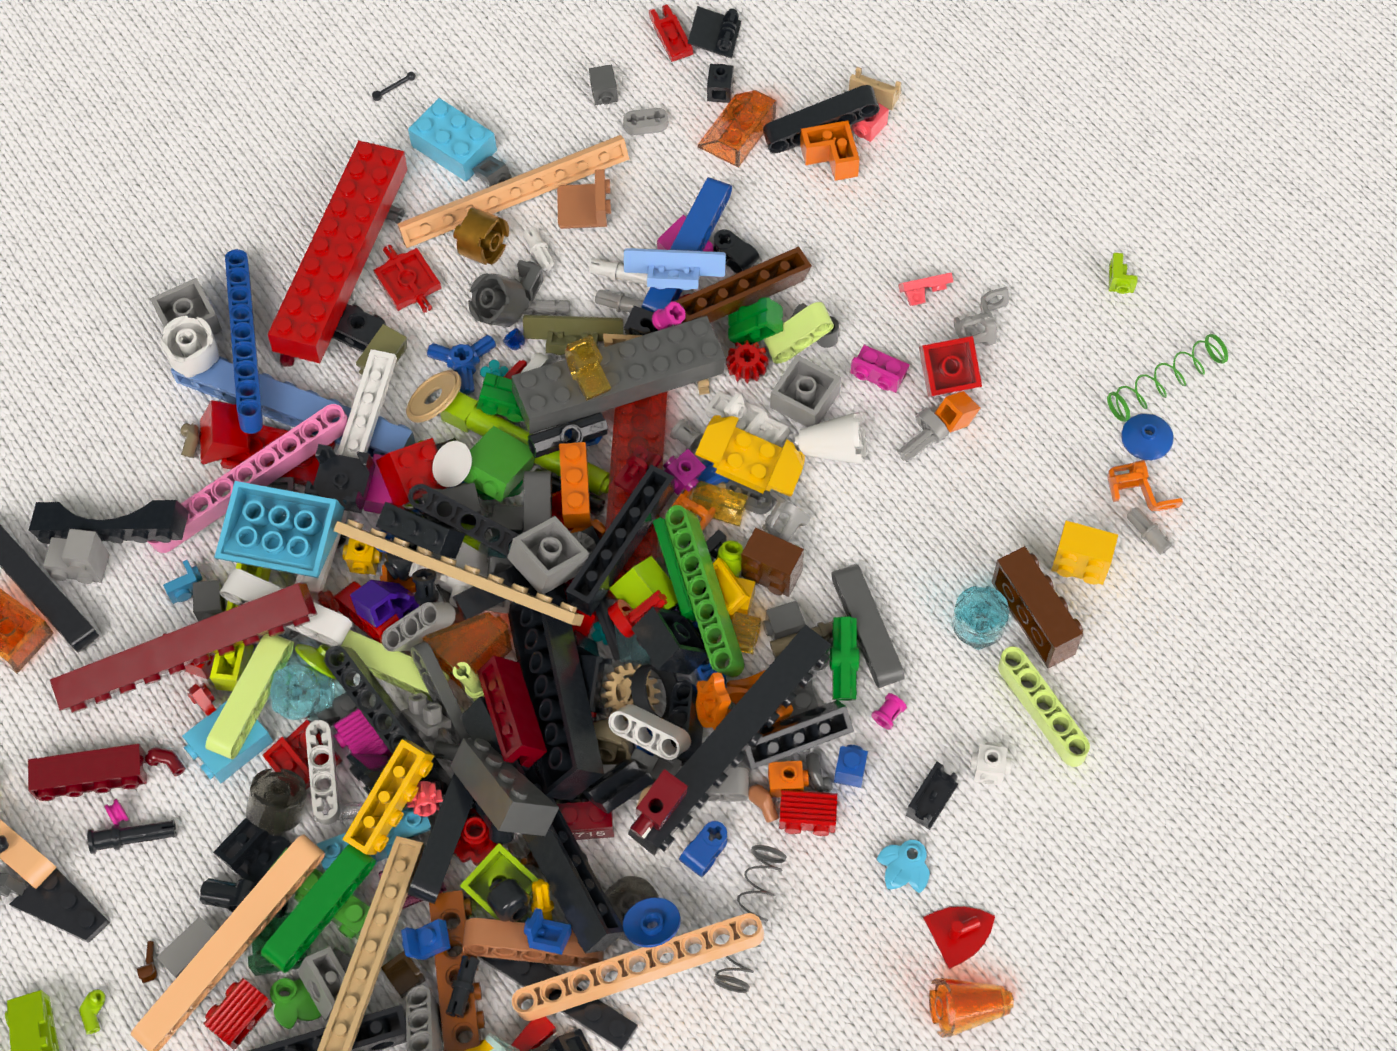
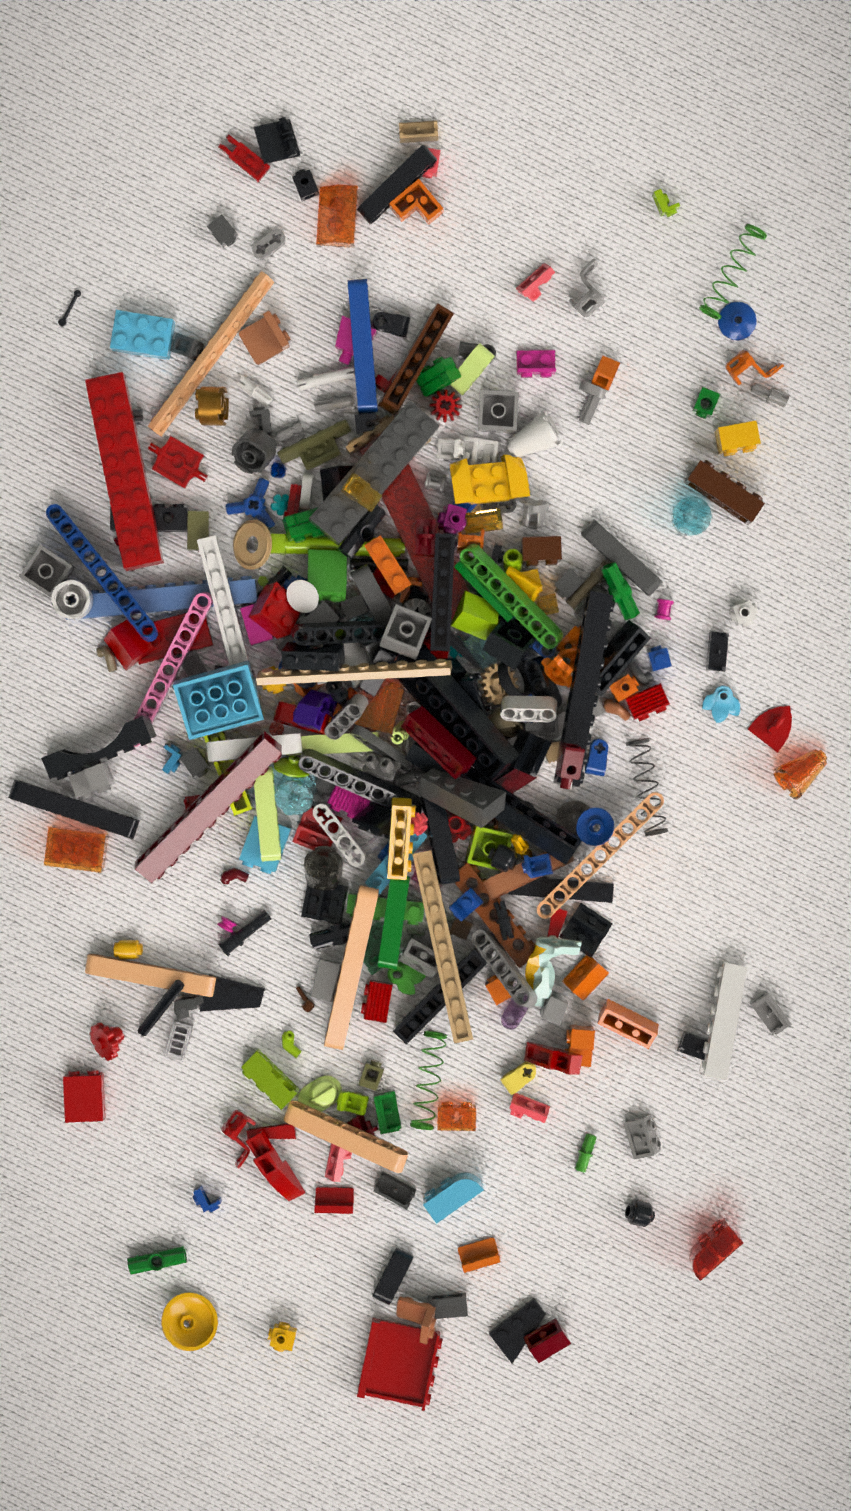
camera: 30 degrees left, 25 degrees up
(86, 772) = (192, 909): dark red brick -> none
(202, 697) = (234, 828): plate -> none
(342, 478) = (235, 643): black panel -> none
(625, 617) = (476, 642): red piece -> none
(665, 318) = (383, 414): dark pink bush -> none
(674, 267) = (368, 374): light blue bracket -> none
(950, 366) = (585, 342): red brick -> none
(1043, 718) = (764, 564): yellowish green beam -> none
(1067, 492) = (709, 395): none -> green brick

